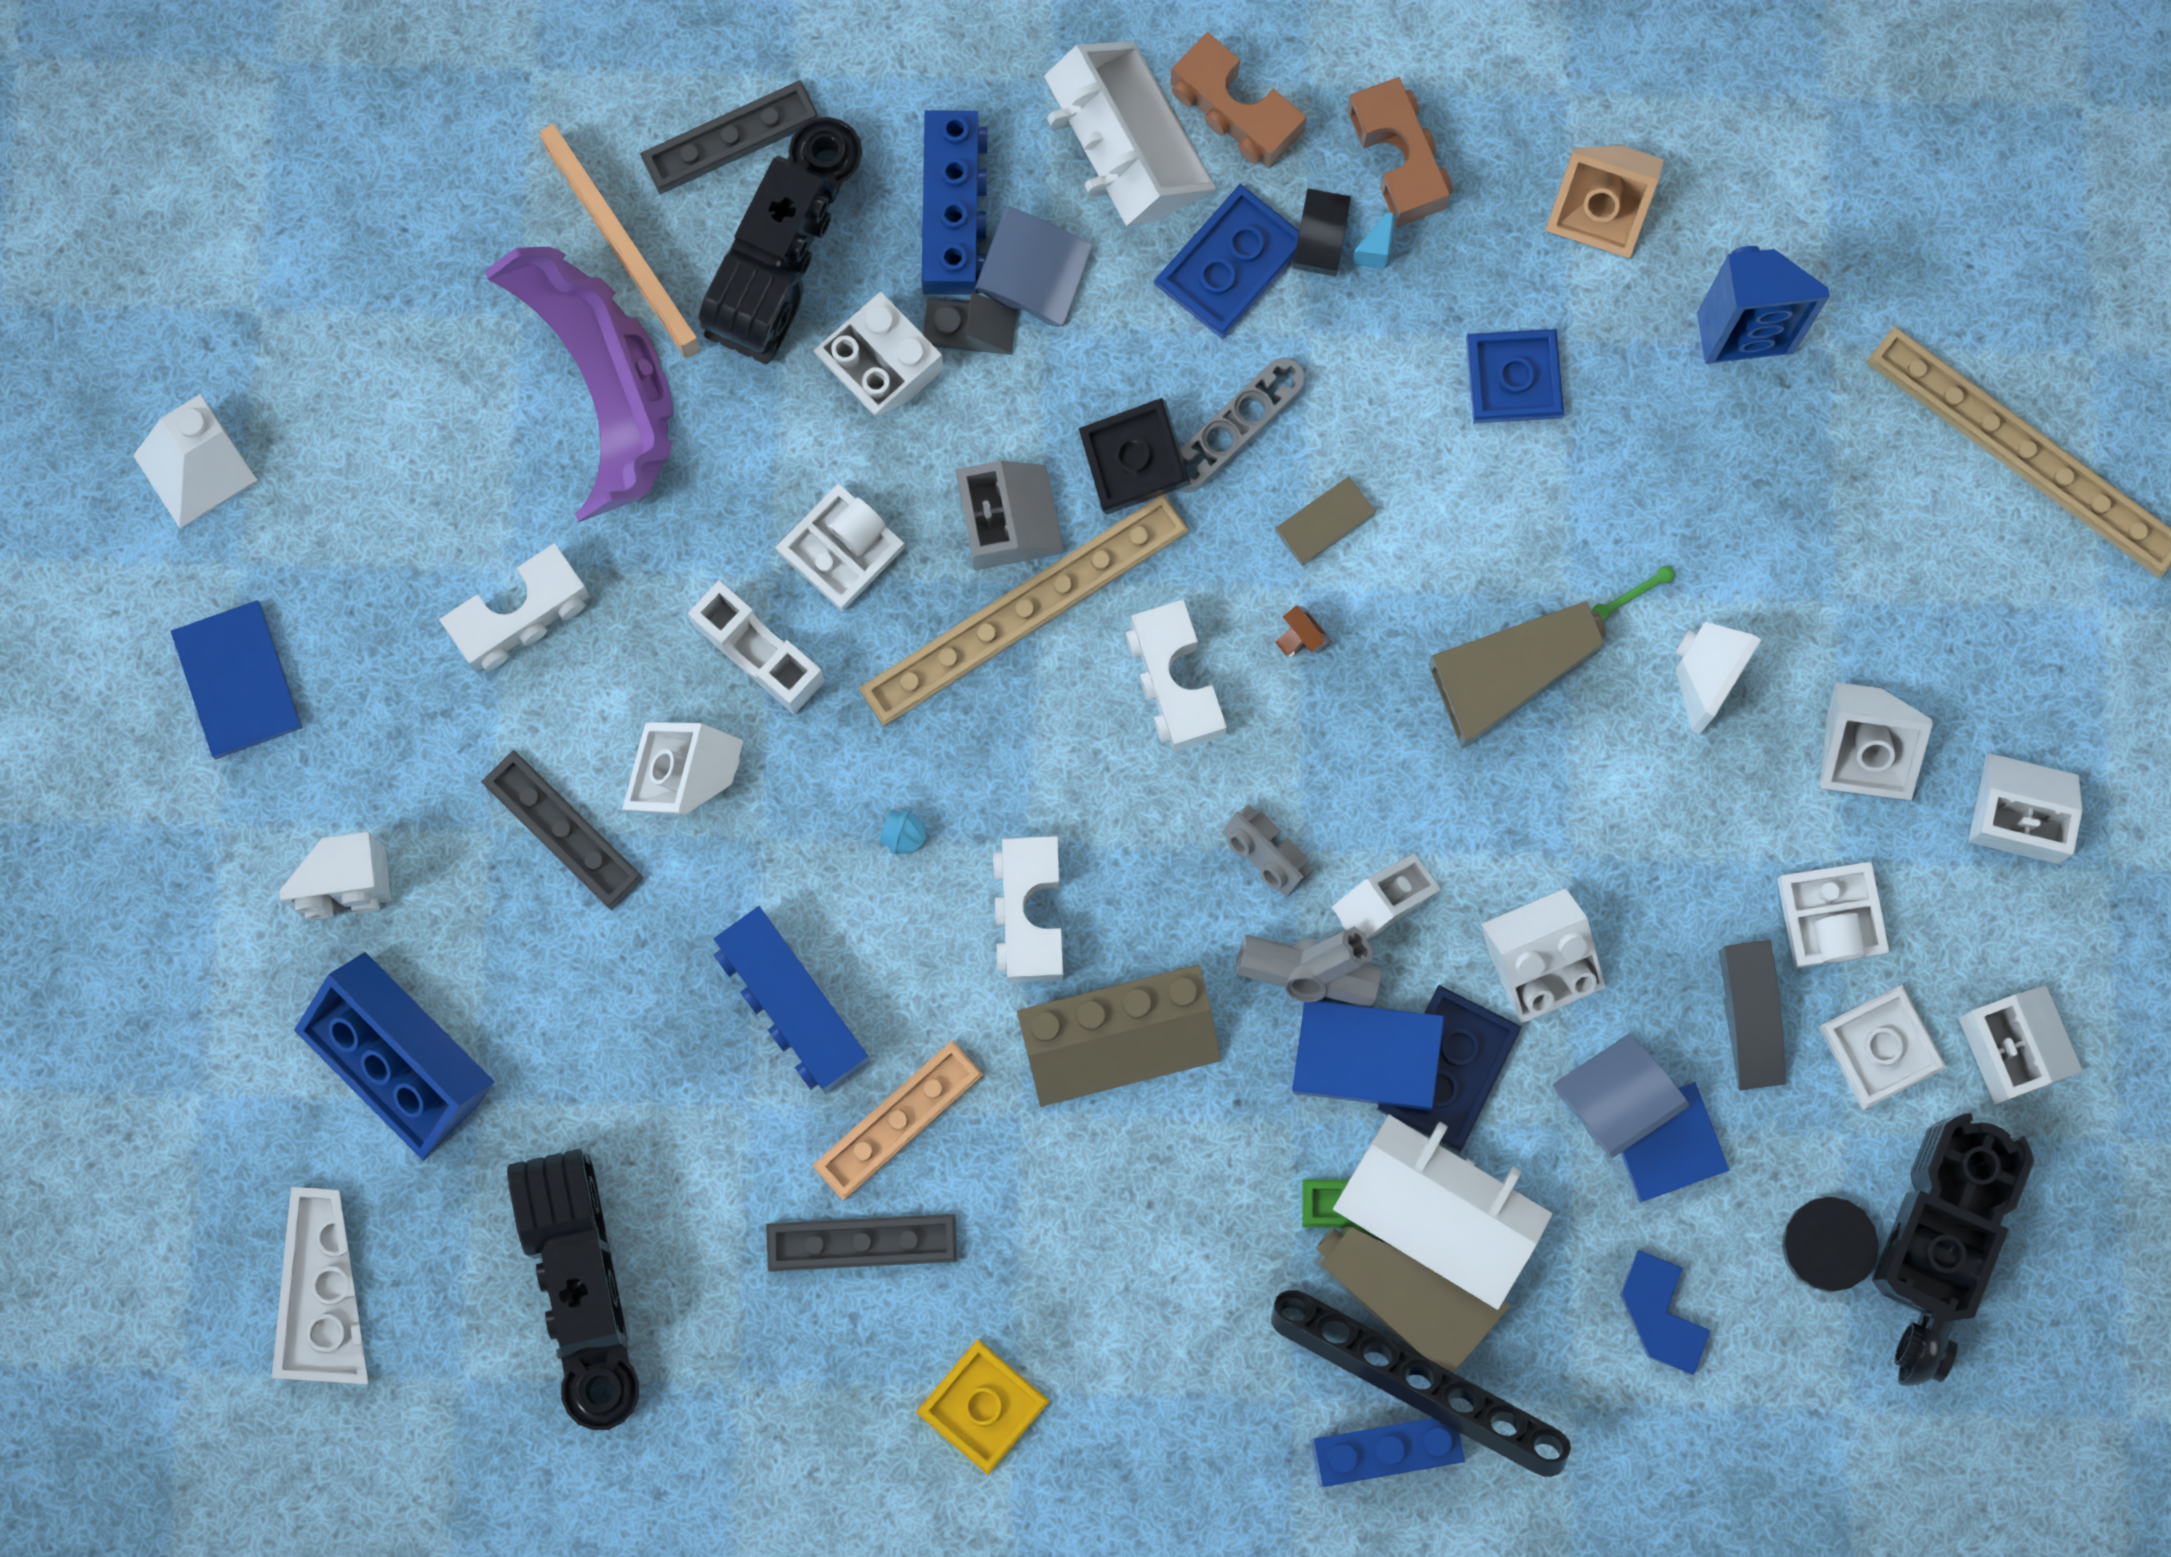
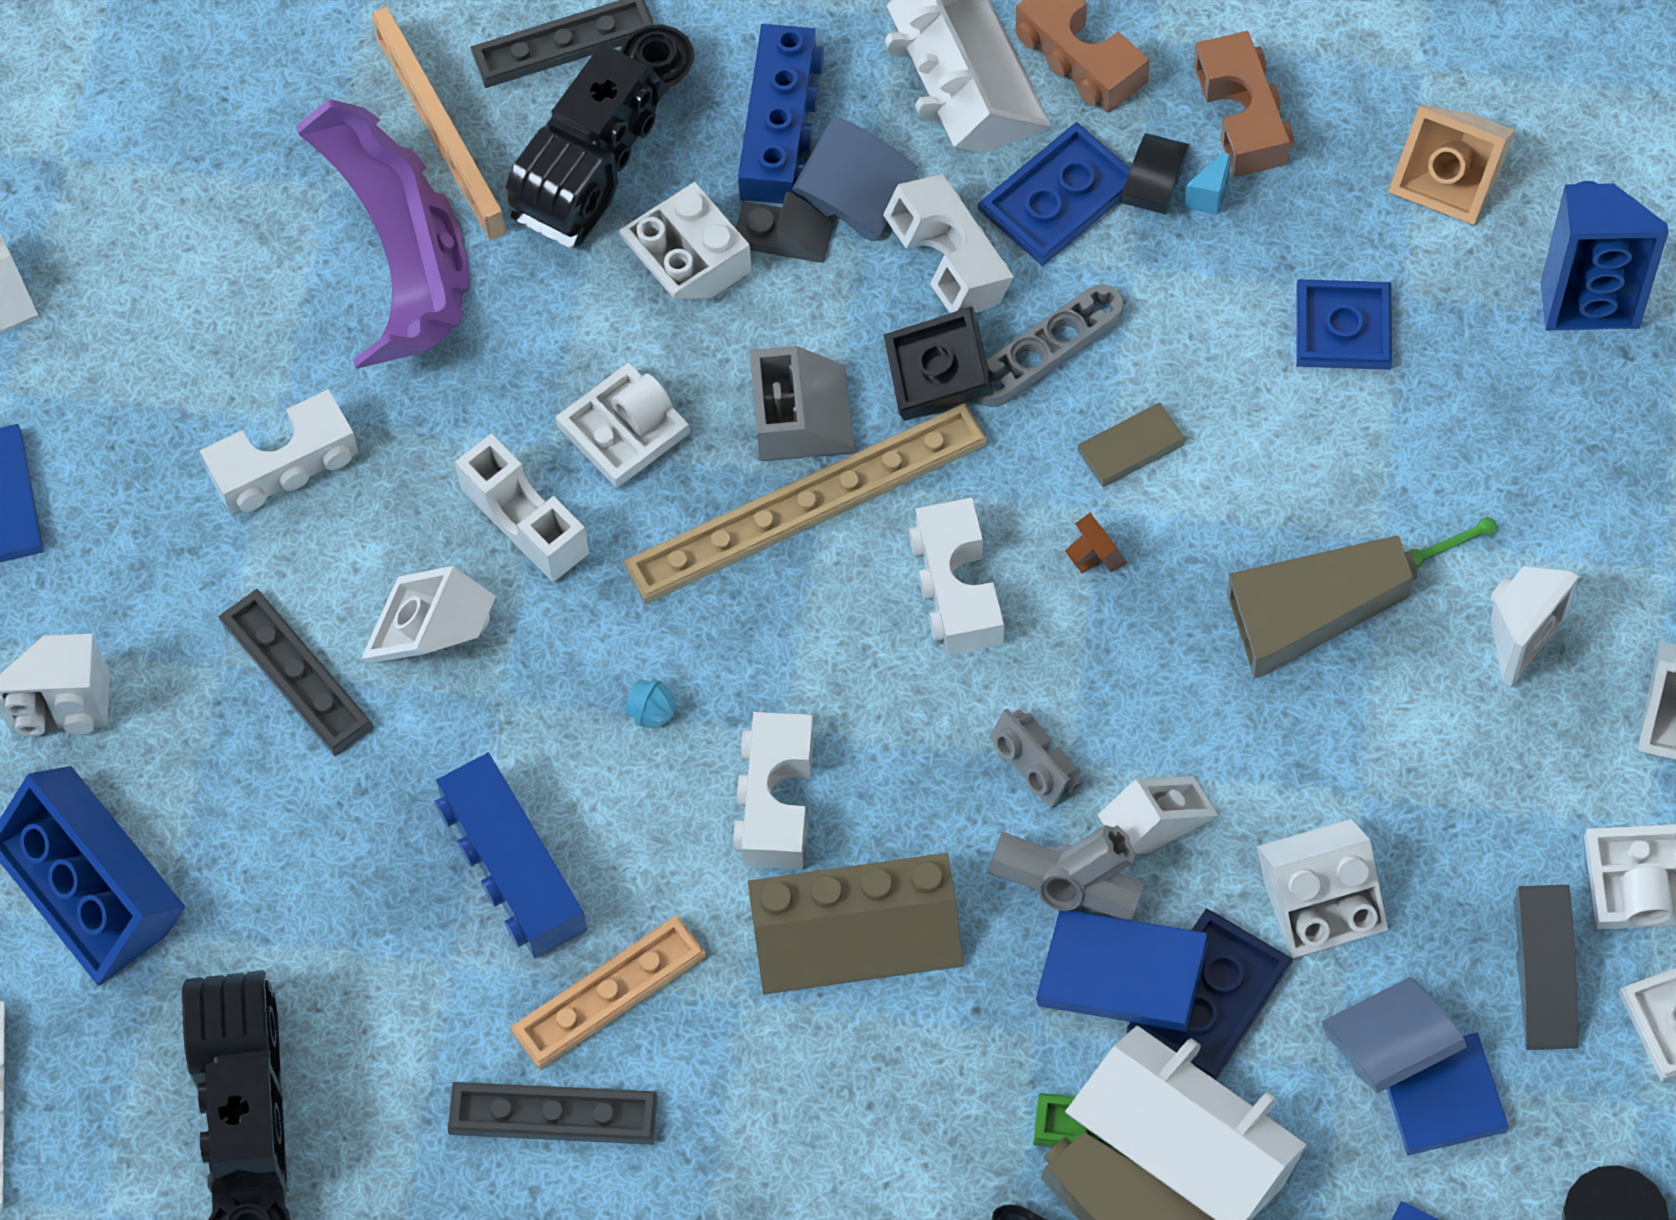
camera: 10 degrees right, 15 degrees down
(1115, 301) = (934, 216): none -> white arch

